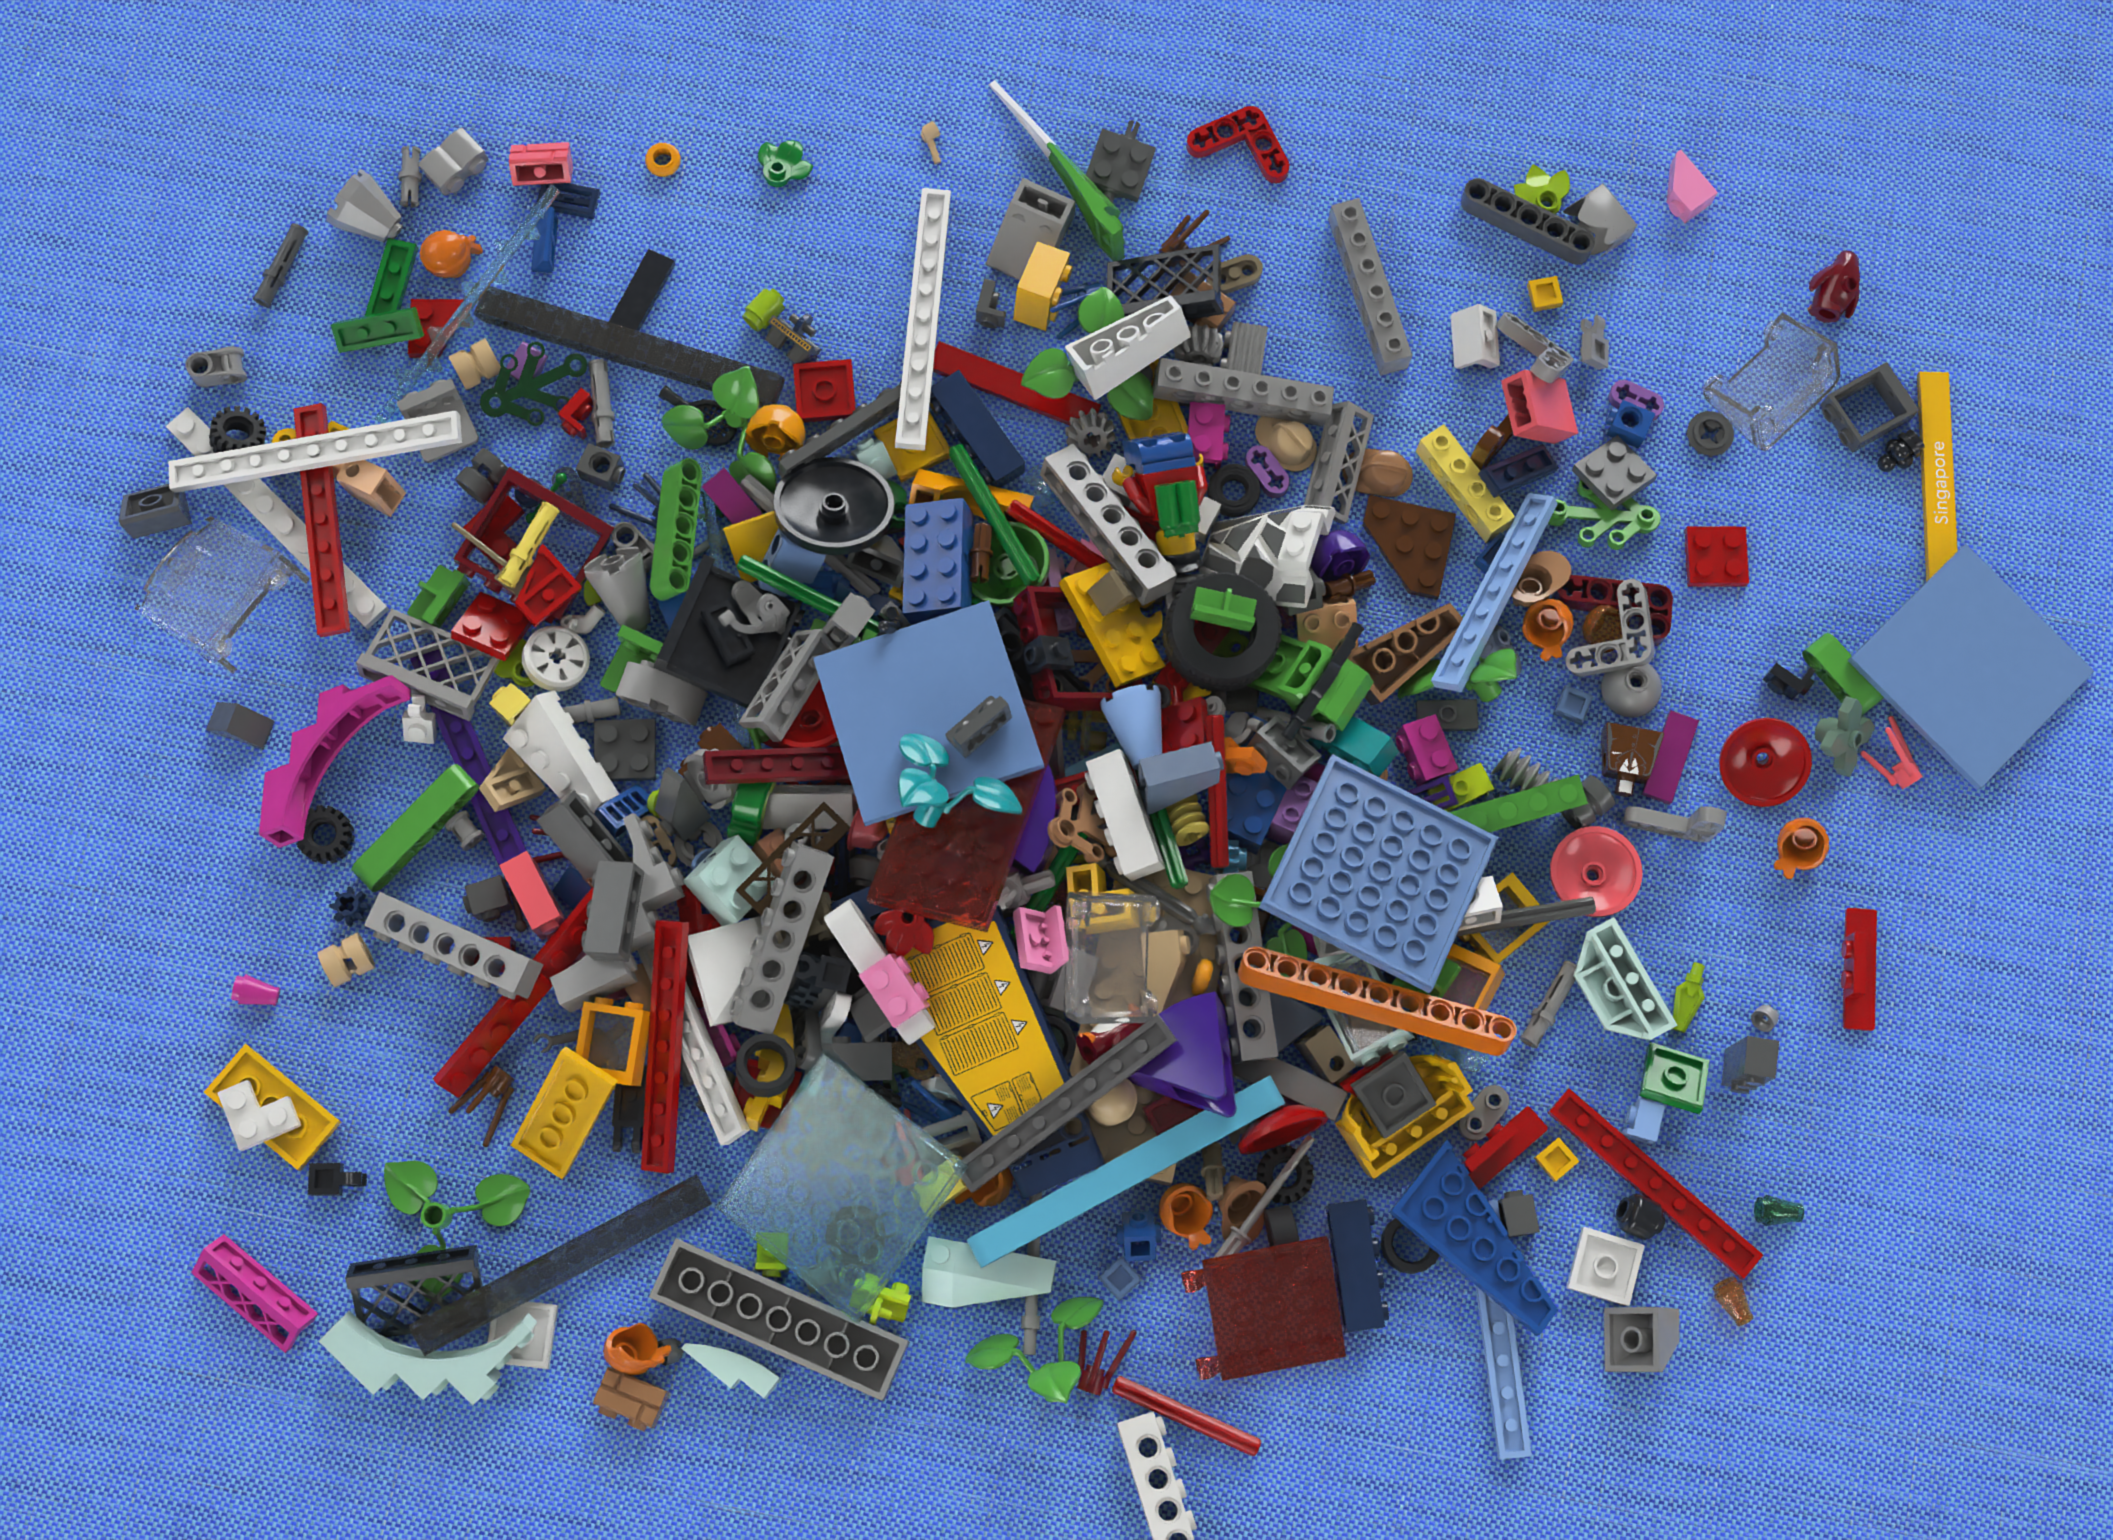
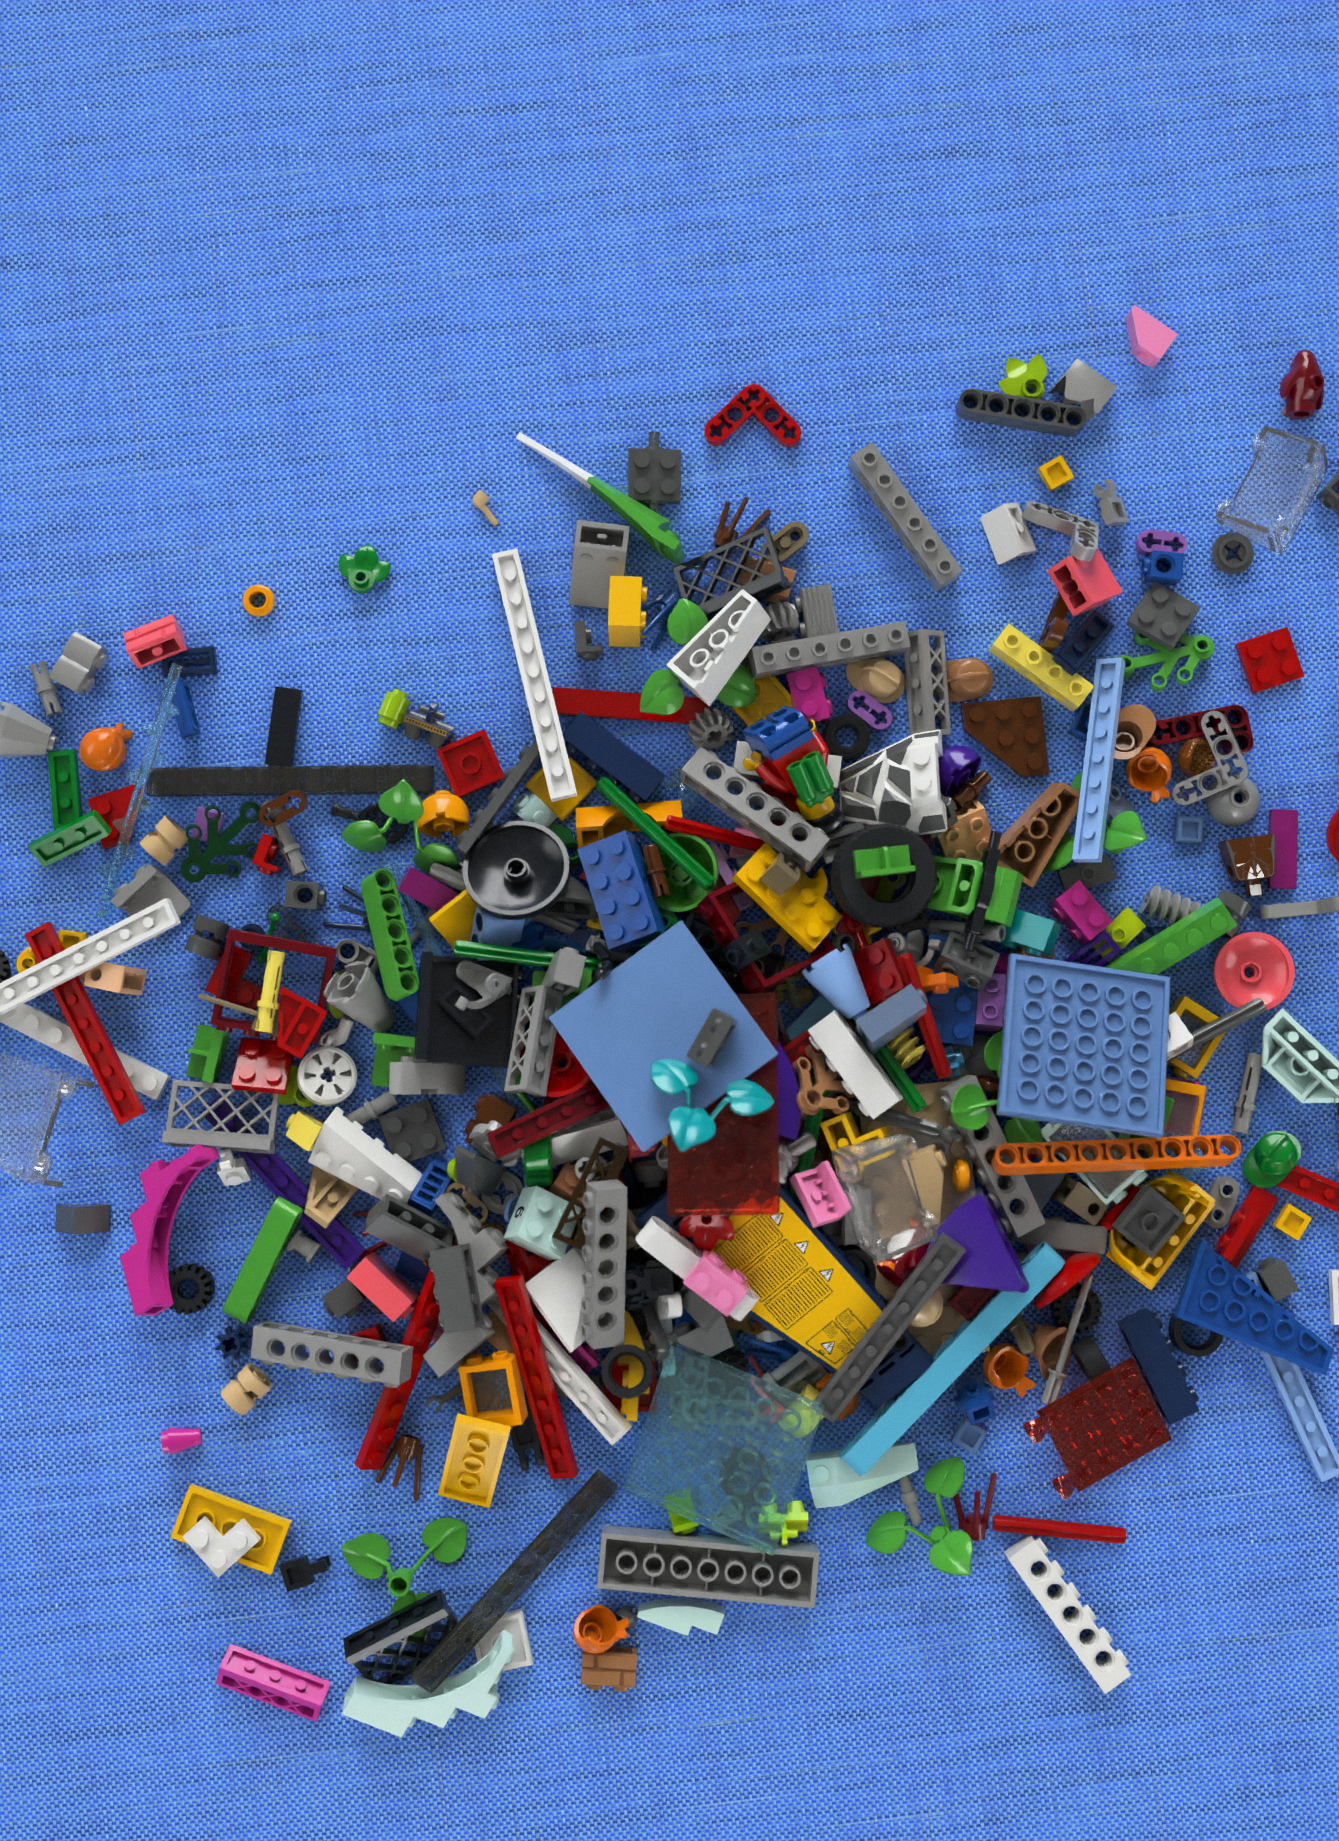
camera: 15 degrees left, 10 degrees up
(611, 361) = (280, 803): none -> reddish brown beam
(1555, 1082) = (1272, 1159): none -> green piece

